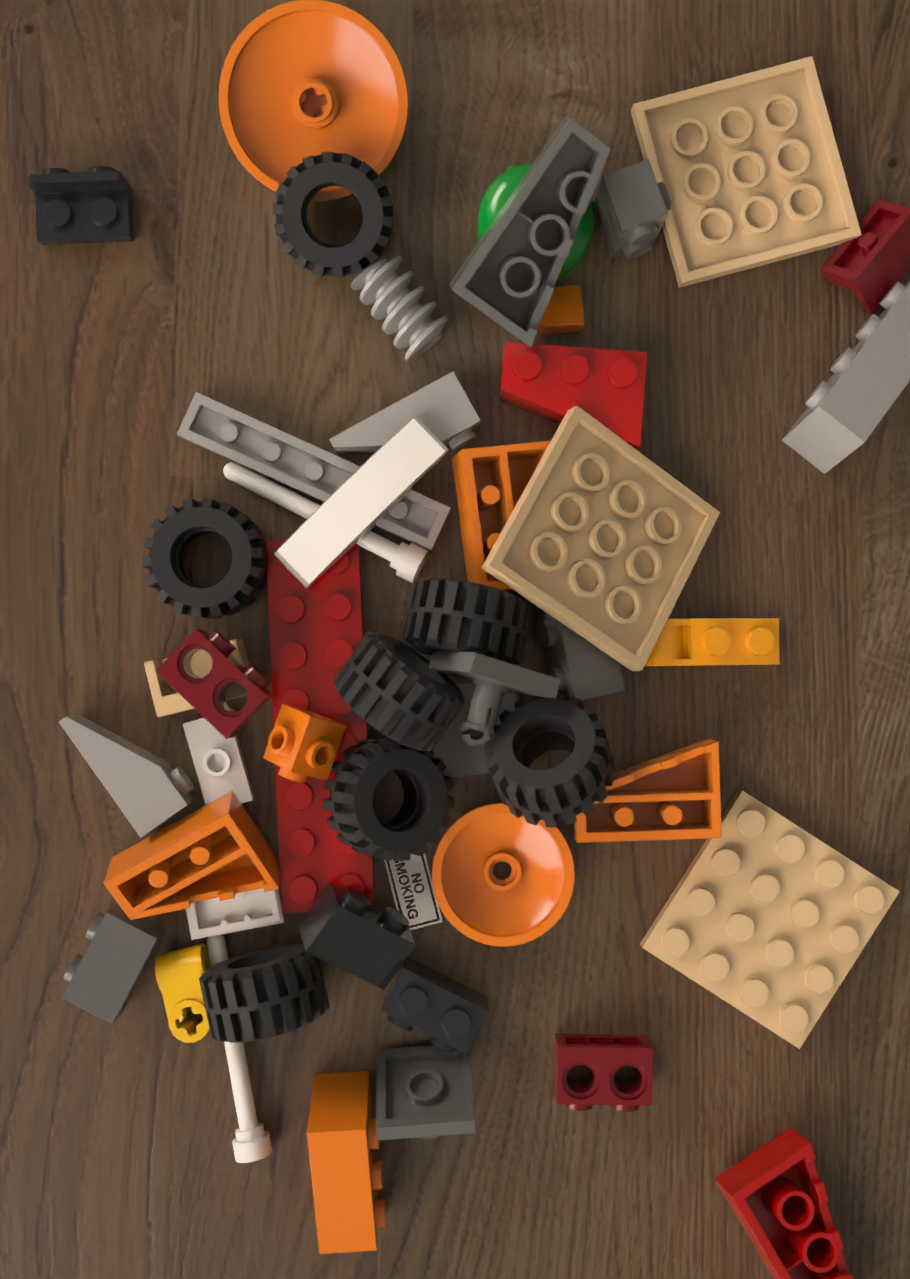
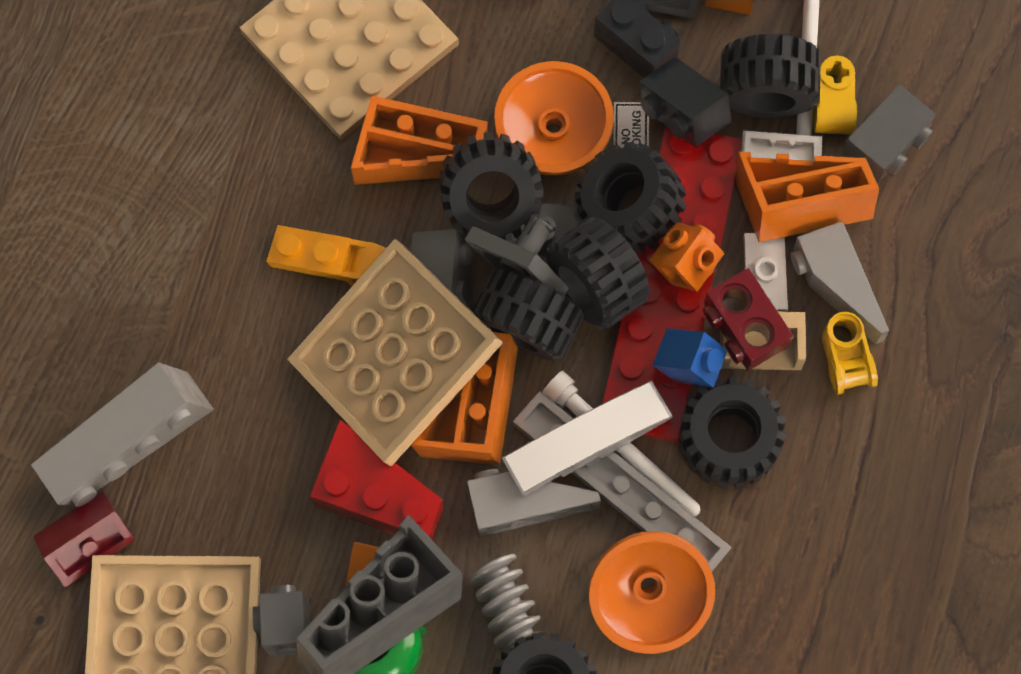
camera: 160 degrees left, 15 degrees down
(97, 680) = (848, 362): none -> yellow piece
(247, 355) = (654, 616): none -> orange dish
(269, 622) = (690, 357): none -> blue brick

